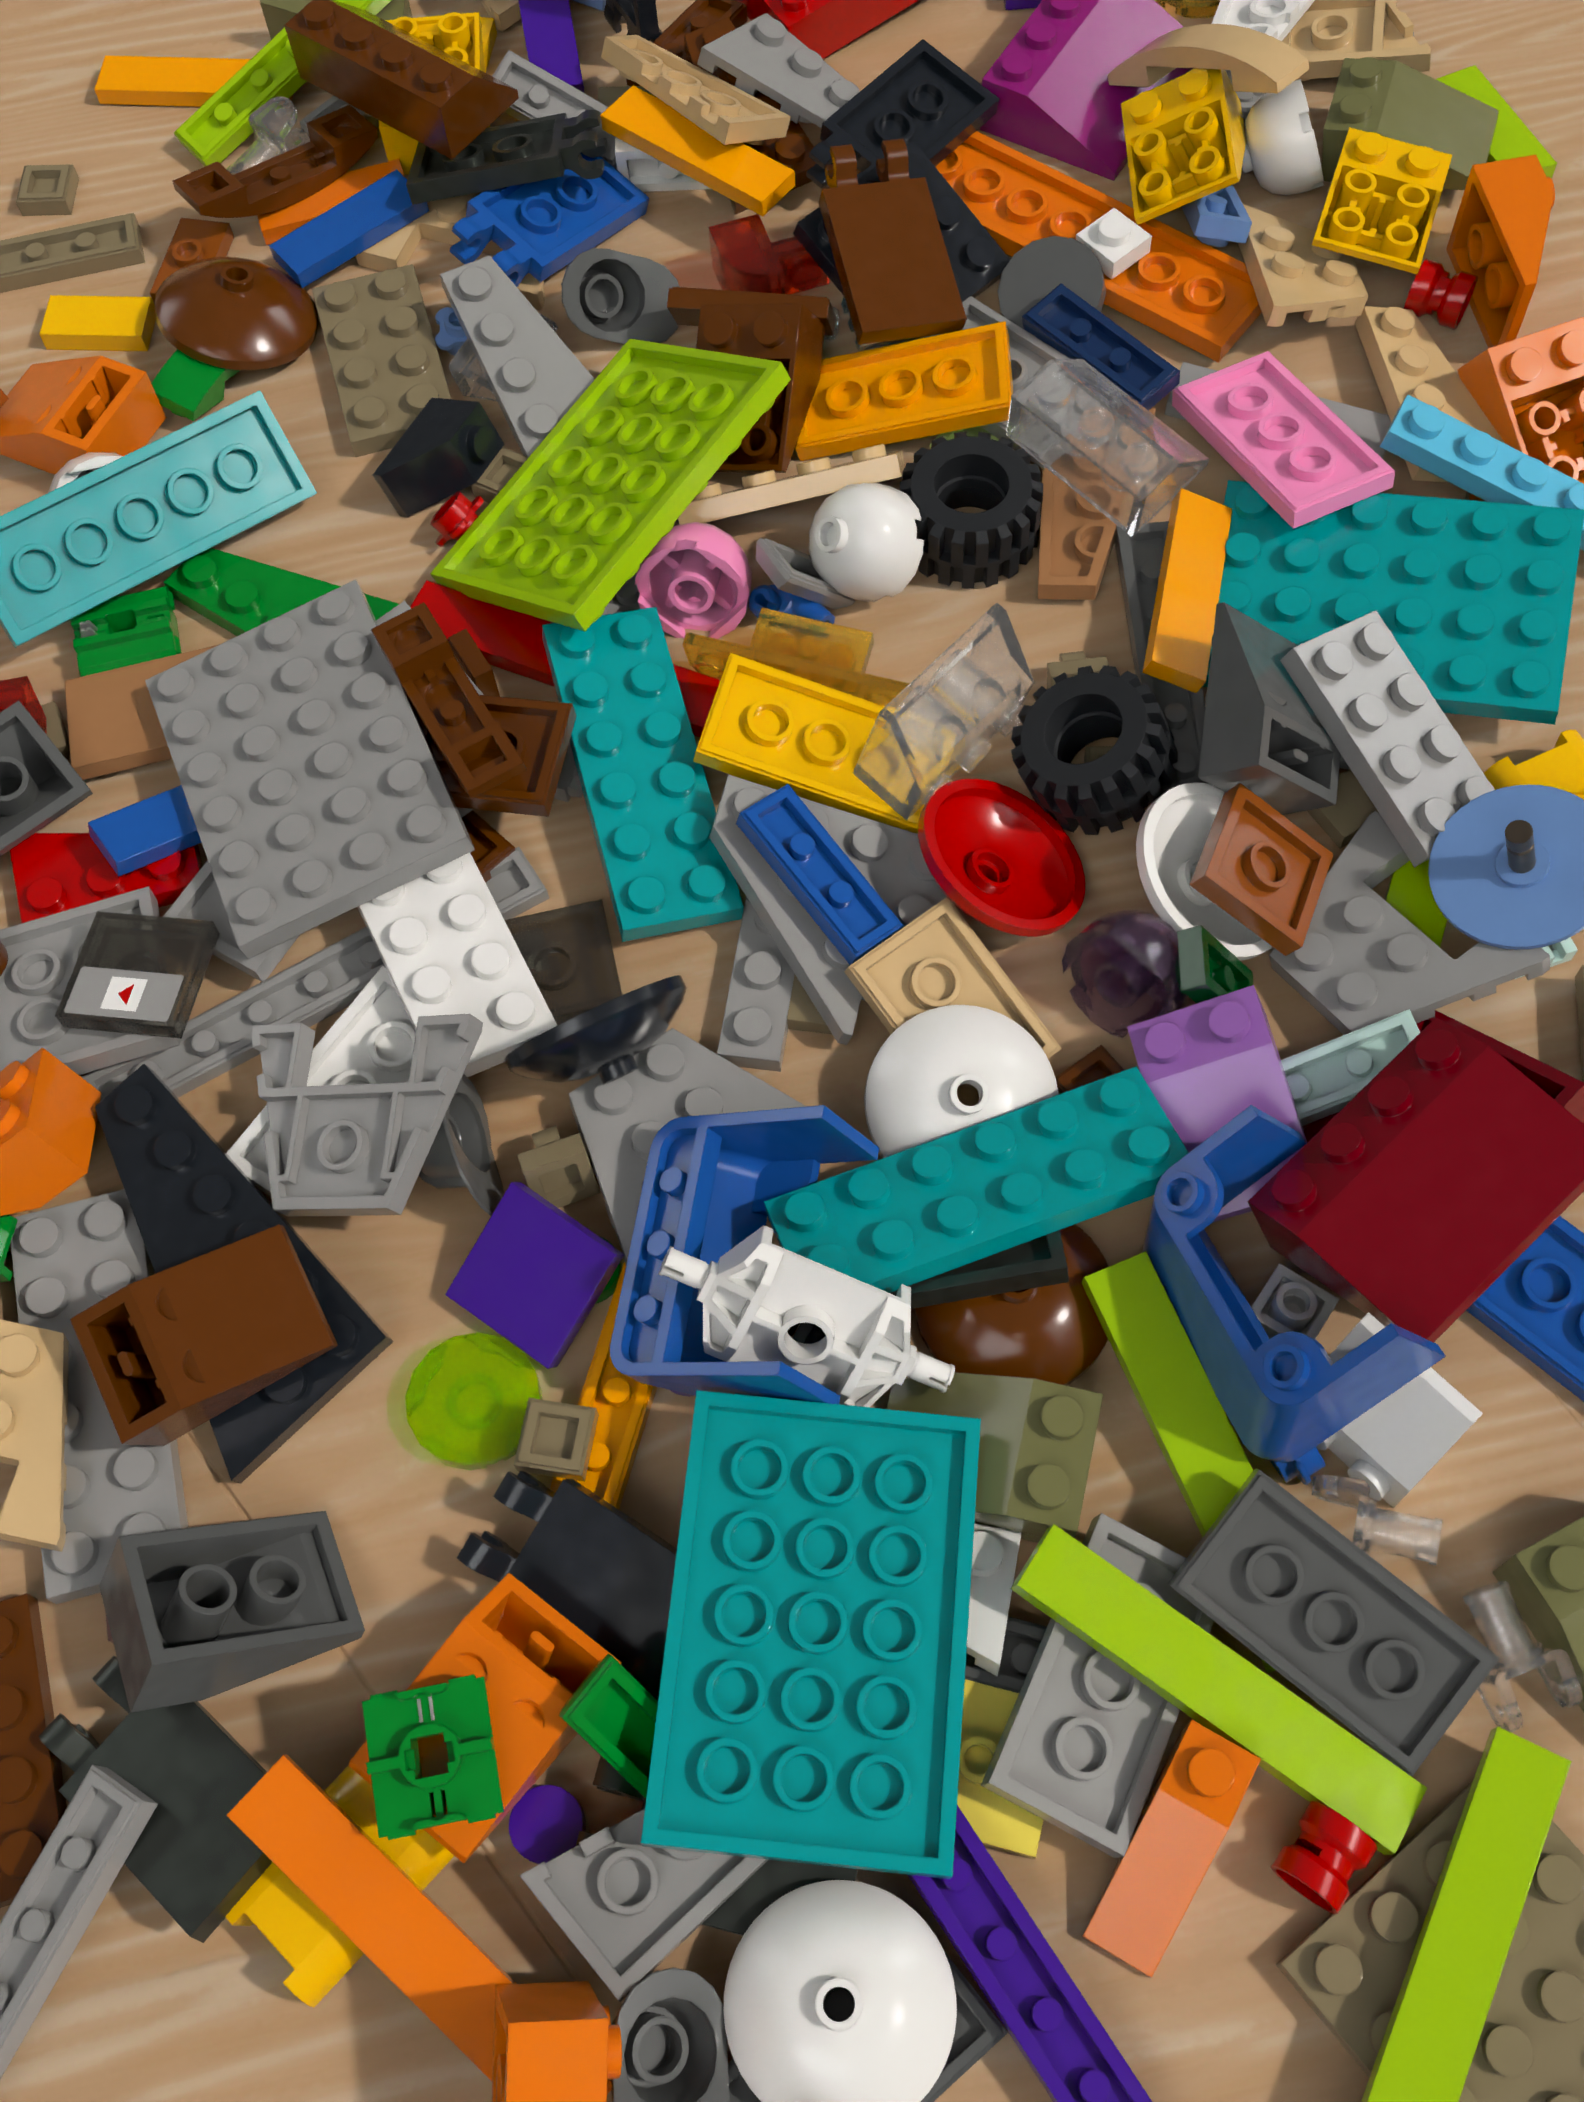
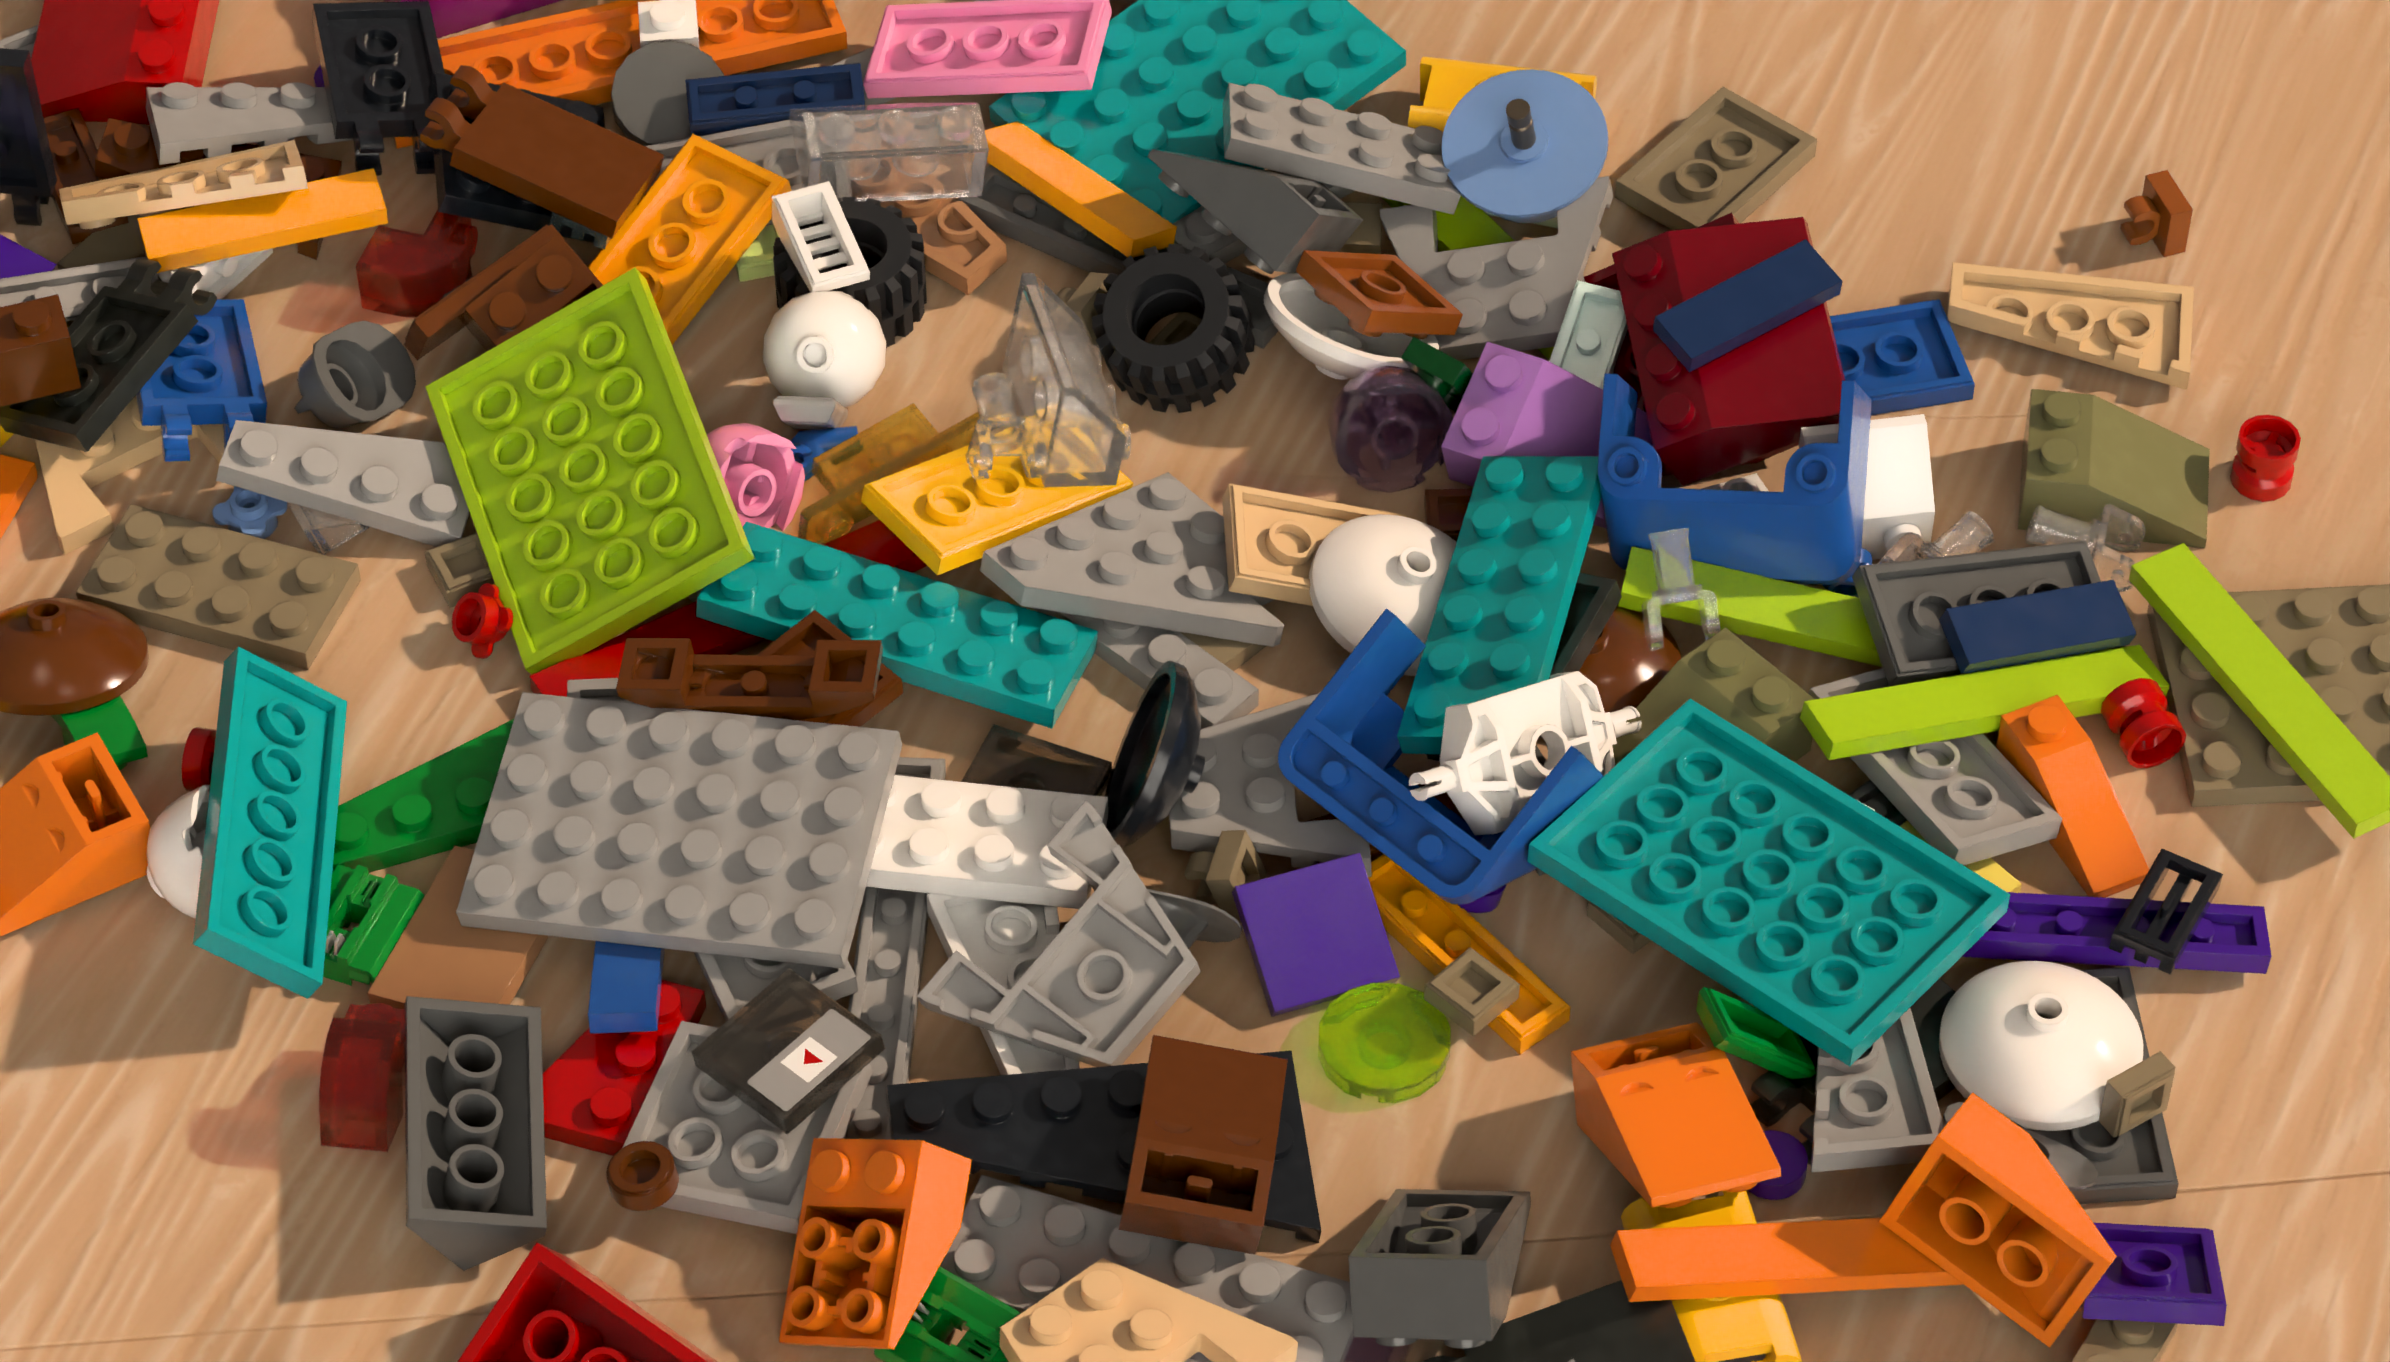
camera: 60 degrees left, 15 degrees down
(347, 229) = (40, 523): blue tile -> none
(393, 1728) = (1724, 1121): green piece -> none
(438, 455) = (403, 585): black slope -> none
(589, 1567) = (1591, 1007): black tile -> none
(813, 480) = (731, 333): tan wing -> none
(818, 873) = (1134, 547): blue tile -> none
(865, 701) = (1002, 431): none -> clear piece
(952, 422) = (810, 206): none -> white slope
(1001, 858) = (1214, 445): red dish -> none
(1012, 2047) = (2149, 943): none -> black tile
(1109, 1324) = (1676, 585): none -> clear piece
(1344, 1683) = (2037, 626): none -> dark blue tile
(1457, 1172) = (1747, 305): none -> dark blue tile

